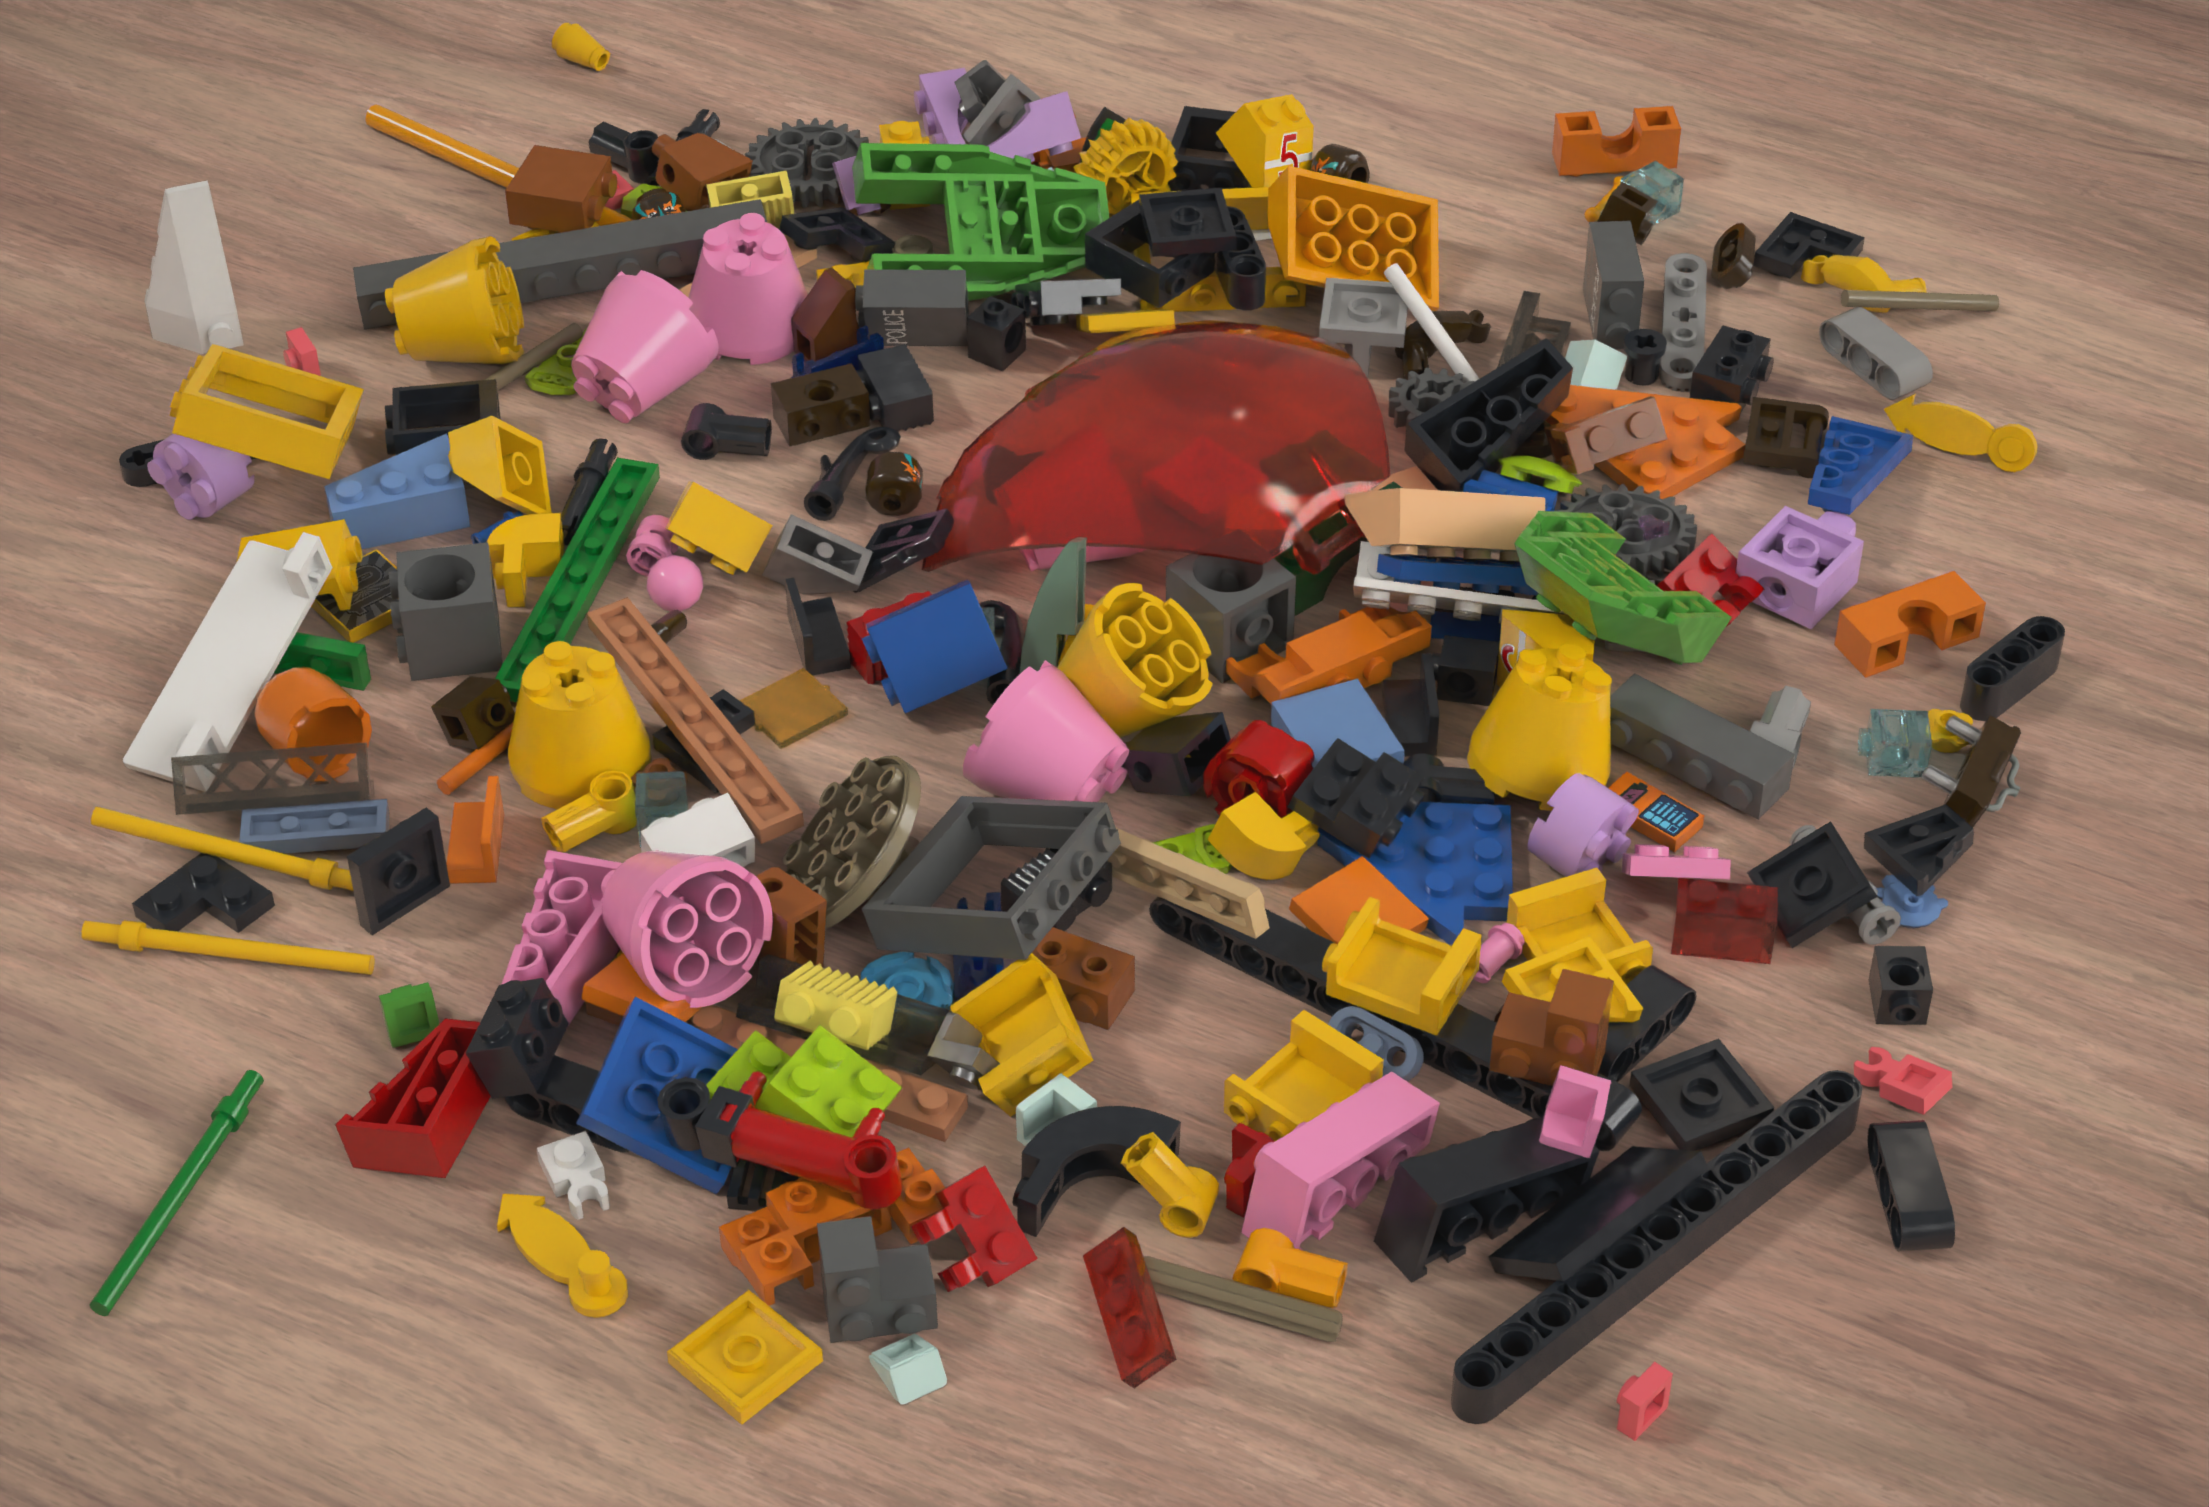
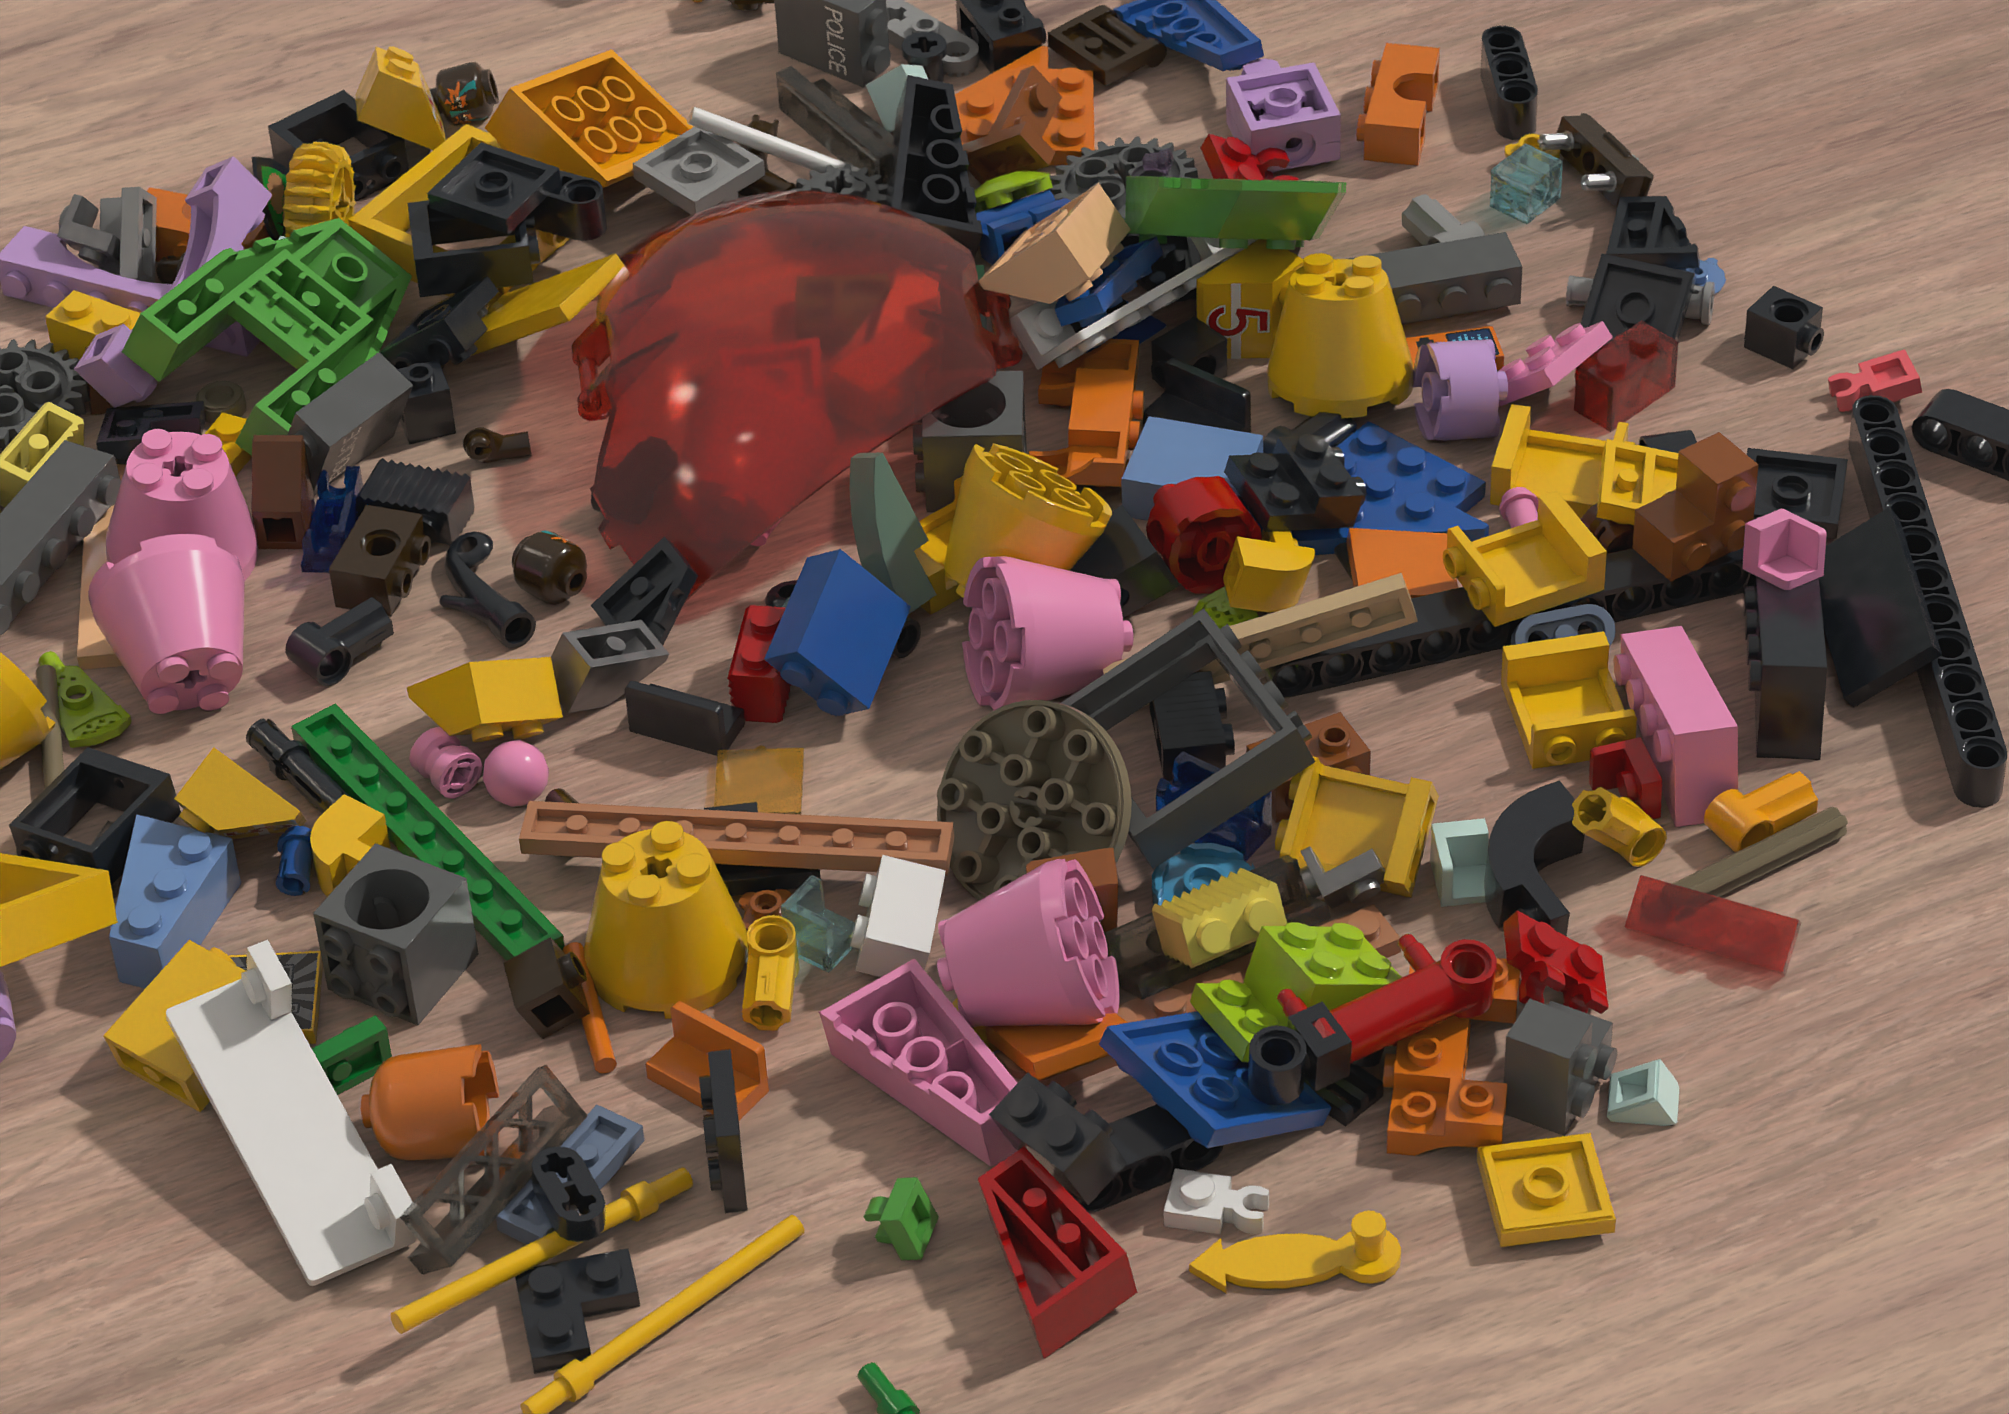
camera: 50 degrees left, 0 degrees up
(271, 824) = (558, 1196): none -> black beam
(992, 389) = (491, 446): none -> dark brown arm

